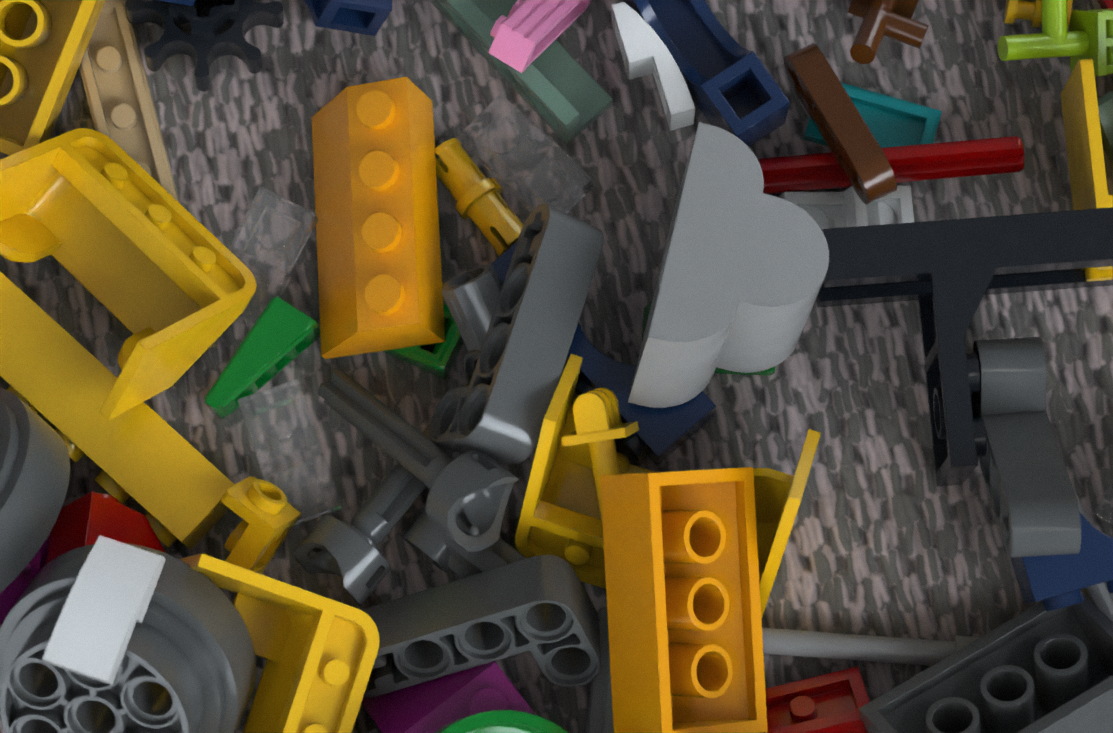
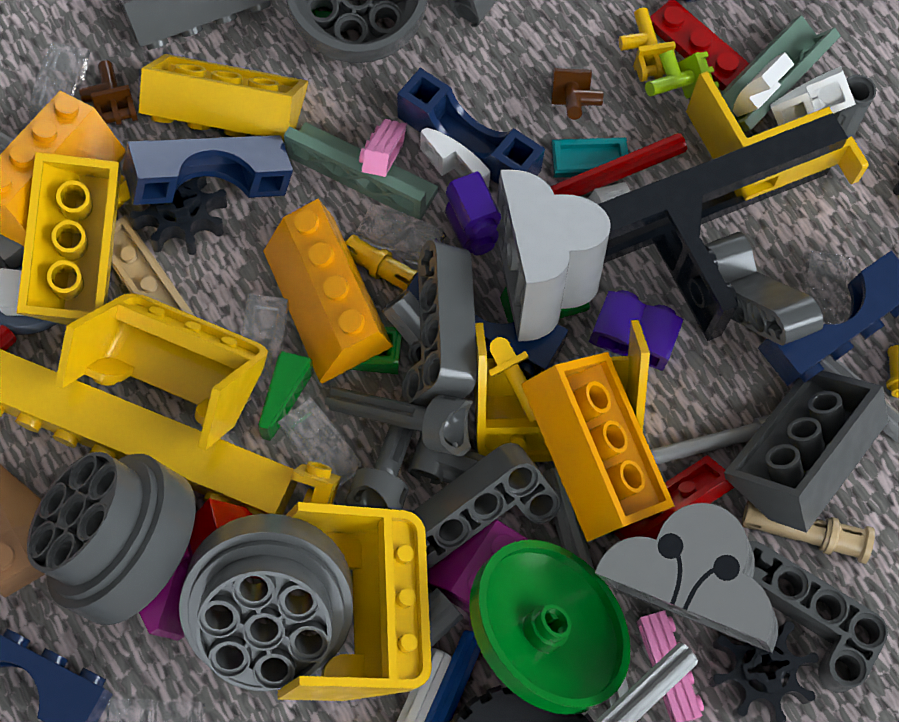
camera: 30 degrees left, 10 degrees down
(103, 609) = (250, 553): white slope -> none
(640, 171) = (472, 213): none -> dark purple brick
(840, 124) = (578, 154): reddish brown beam -> none
(851, 443) = (657, 322): none -> dark purple brick

